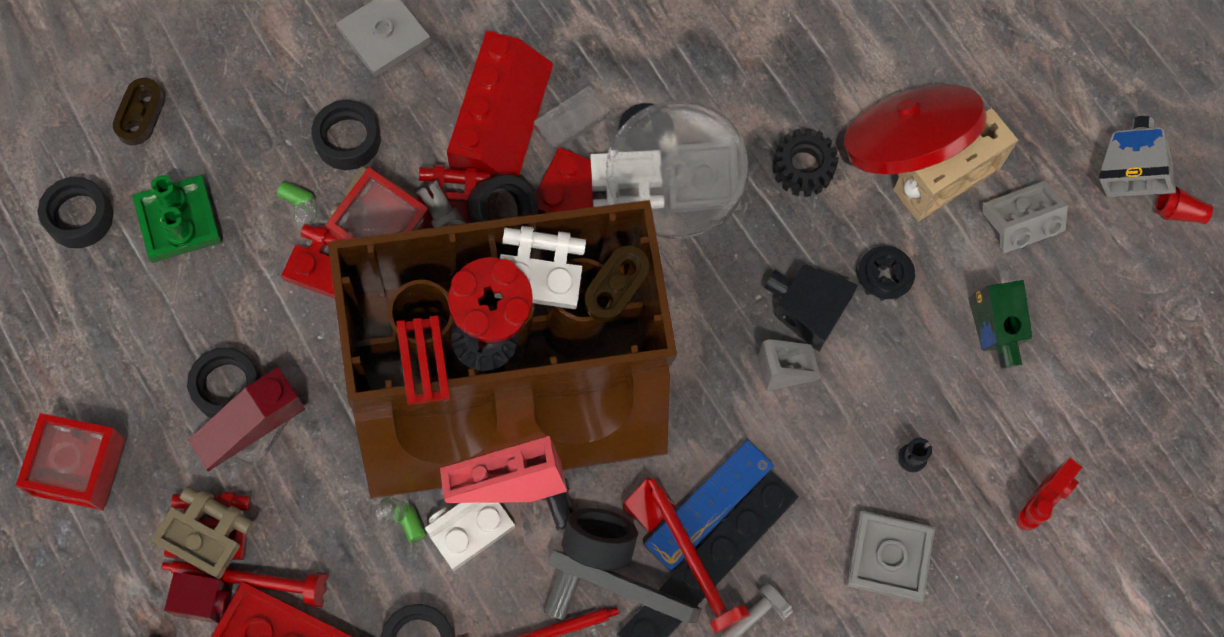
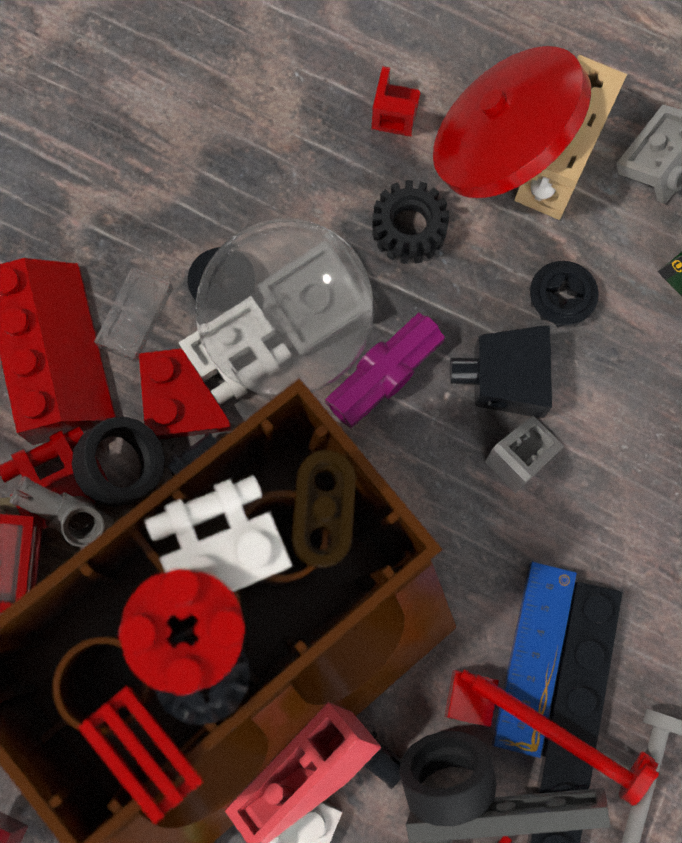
camera: 25 degrees left, 5 degrees up
(724, 253) = (385, 370): none -> magenta piece
(844, 75) = (394, 106): none -> red panel

